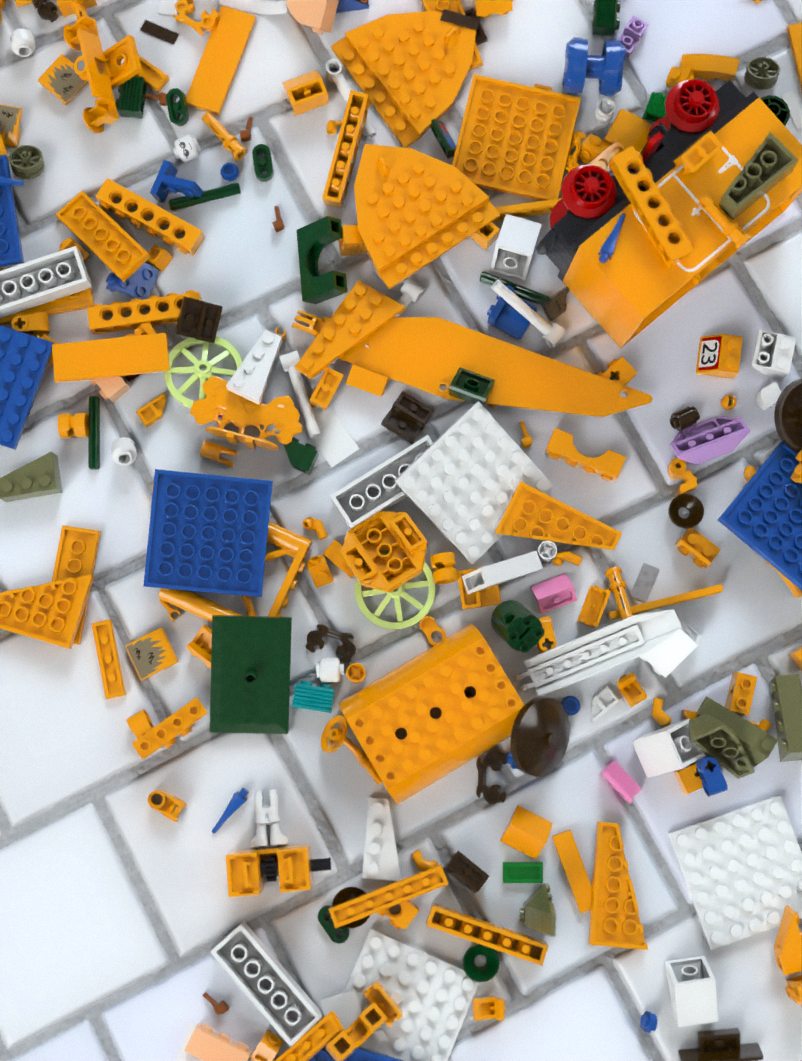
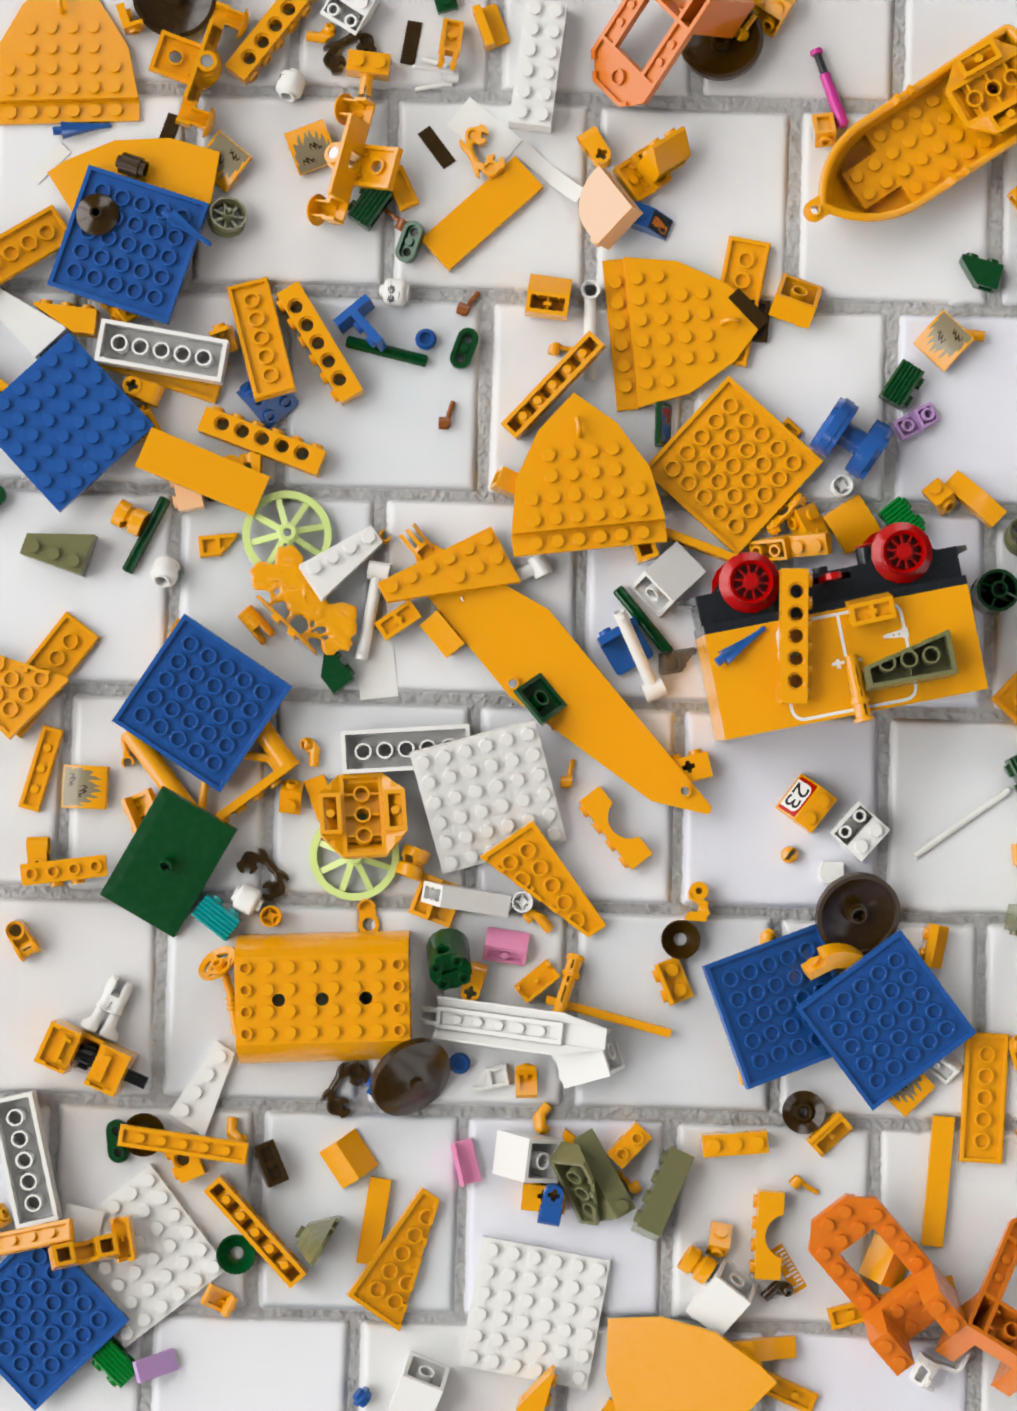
camera: 30 degrees right, 5 degrees up
(159, 258) = (306, 389): light orange slope -> none
(198, 319) = (309, 480): dark brown slope -> none
(229, 141) = (442, 307): light orange pin -> none
(236, 801) = (90, 974): blue piece -> none
(311, 241) = (464, 462): dark green arch -> none
(407, 417) = (462, 692): dark brown slope -> none
(522, 872) = (323, 1193): green tile -> none
(645, 582) = (602, 985): flat silver sticker -> none
(684, 418) = (735, 846): dark brown brick -> none
(709, 439) = (744, 881): lavender wedge -> none

